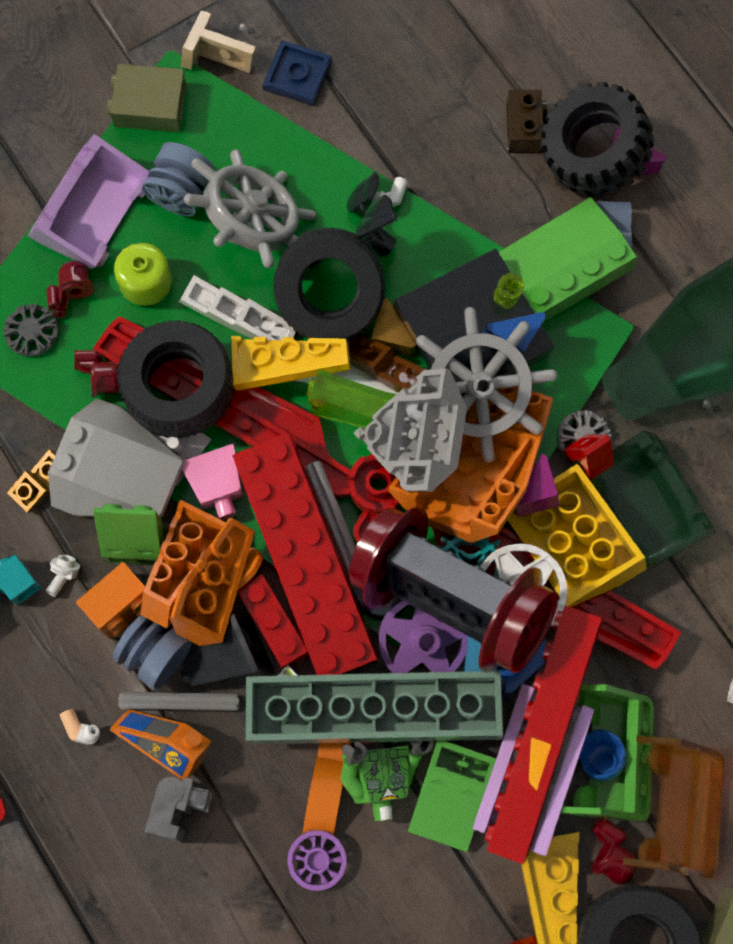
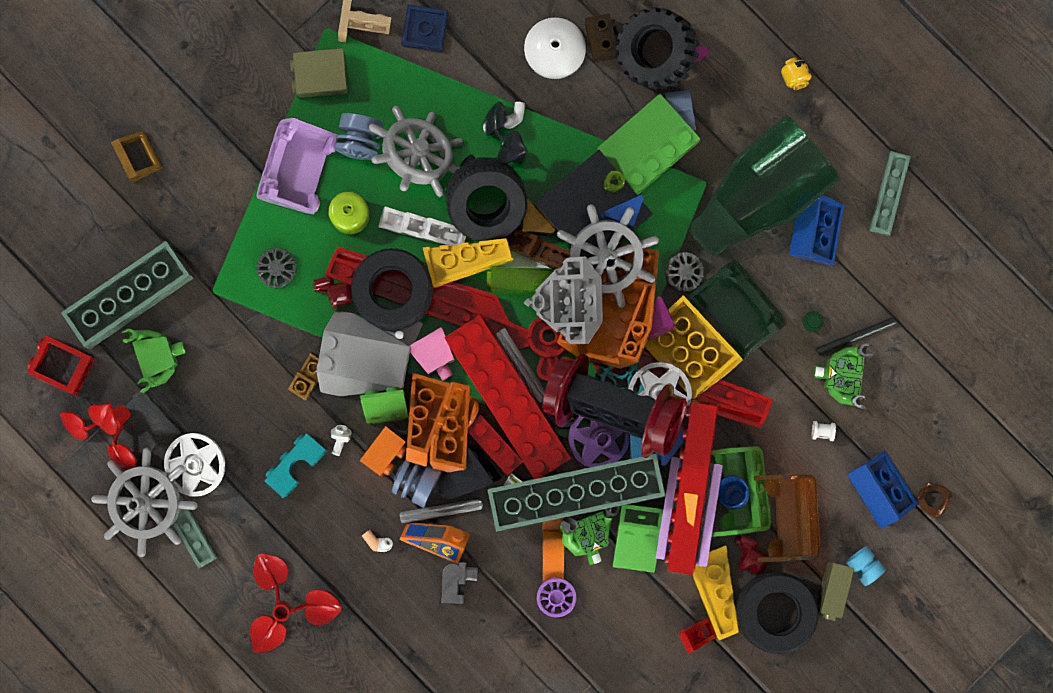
camera: 15 degrees left, 10 degrees up
(72, 284) = (299, 228): dark red piece -> none
(459, 139) = (551, 61): none -> white dish
(593, 453) = (691, 286): red slope -> none

